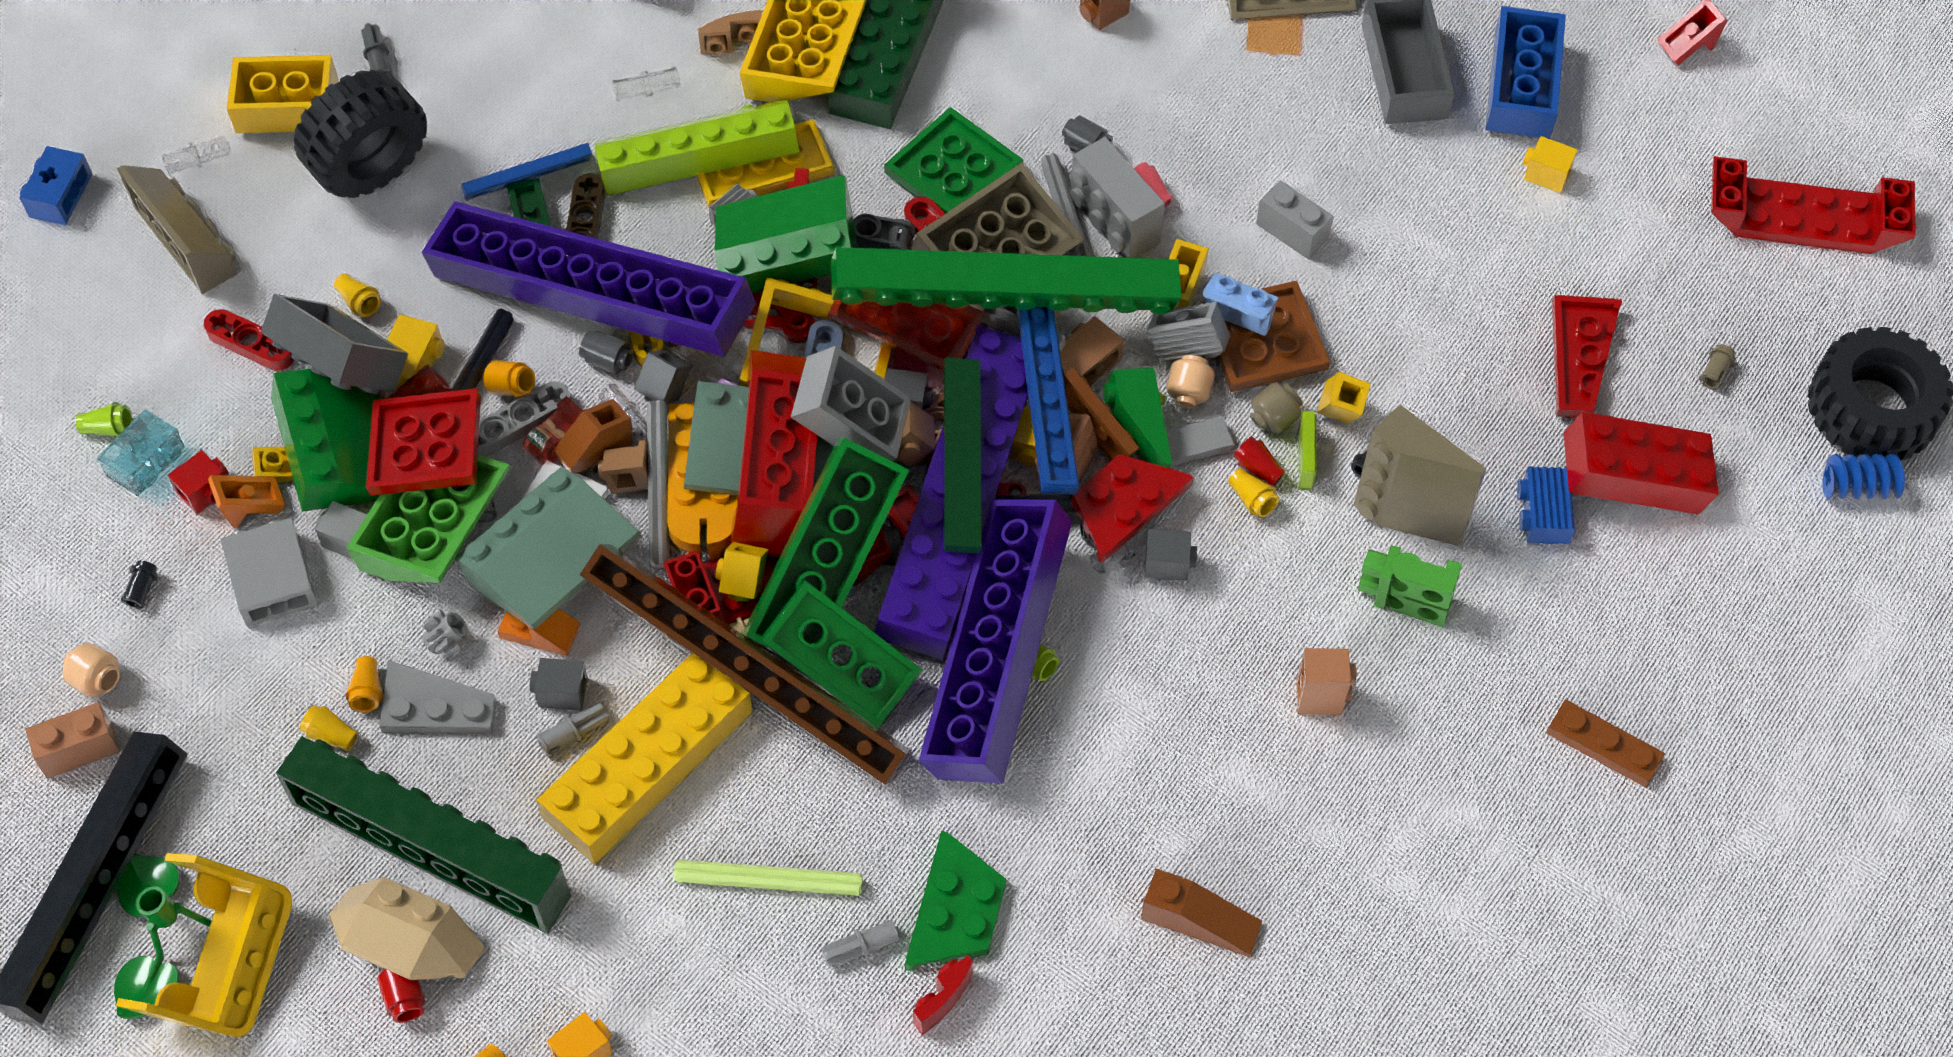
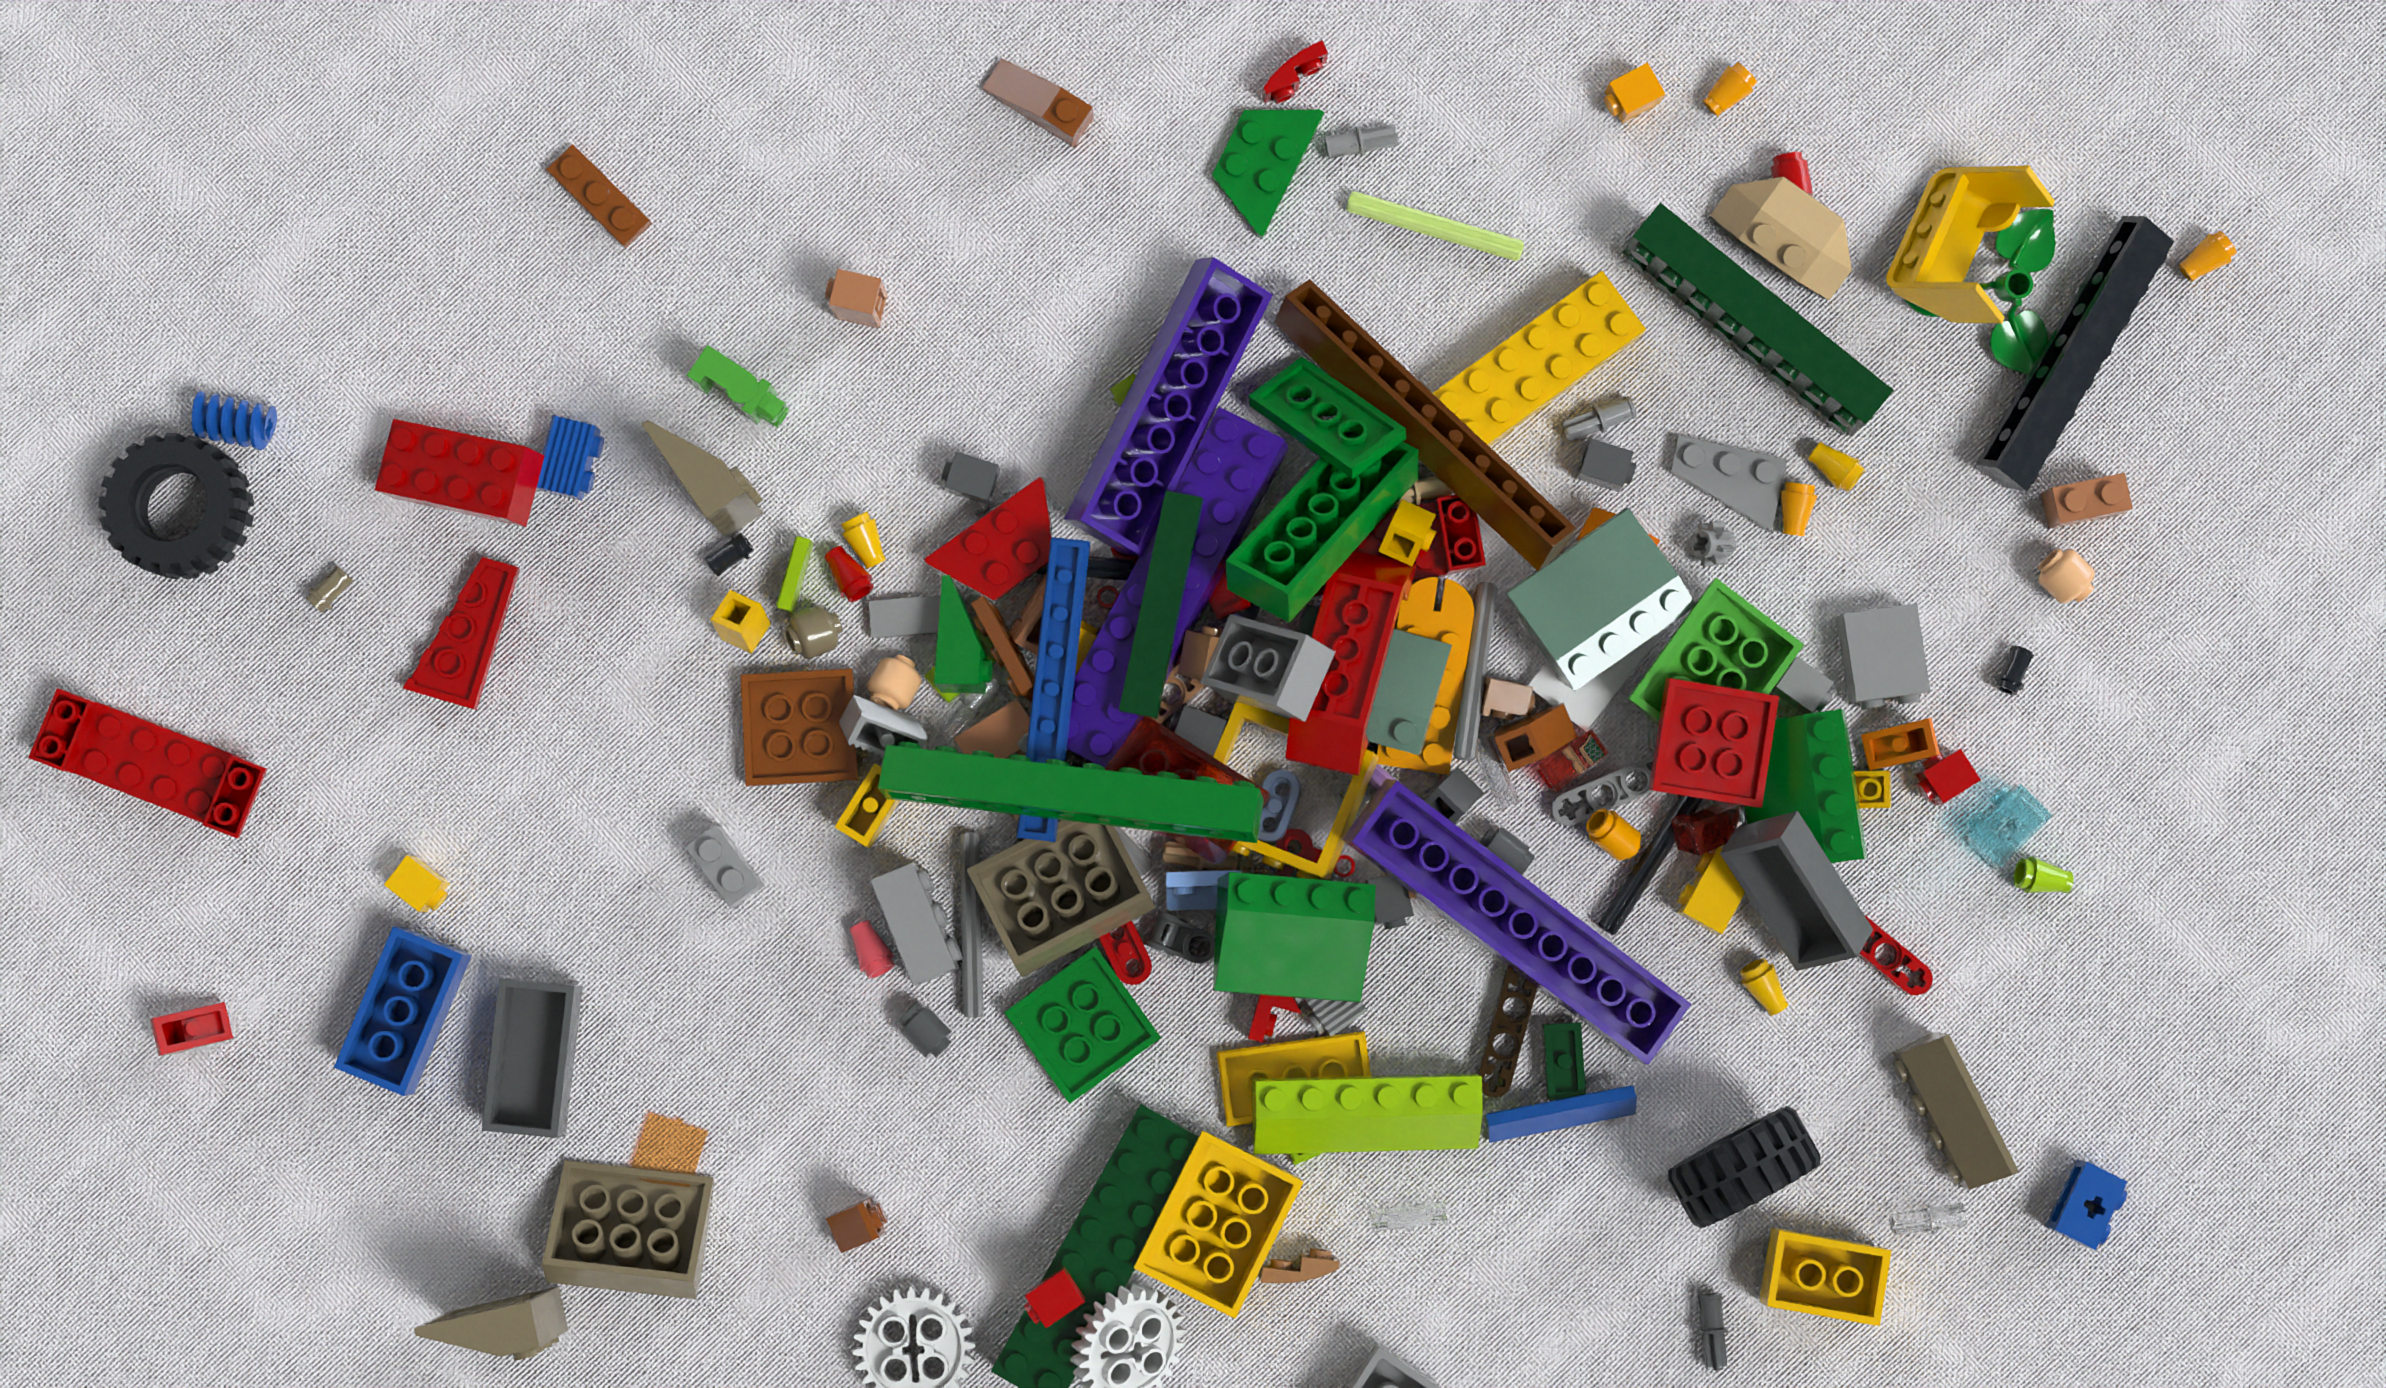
camera: 170 degrees left, 25 degrees up
(1241, 303) = (821, 746): light blue bracket -> none

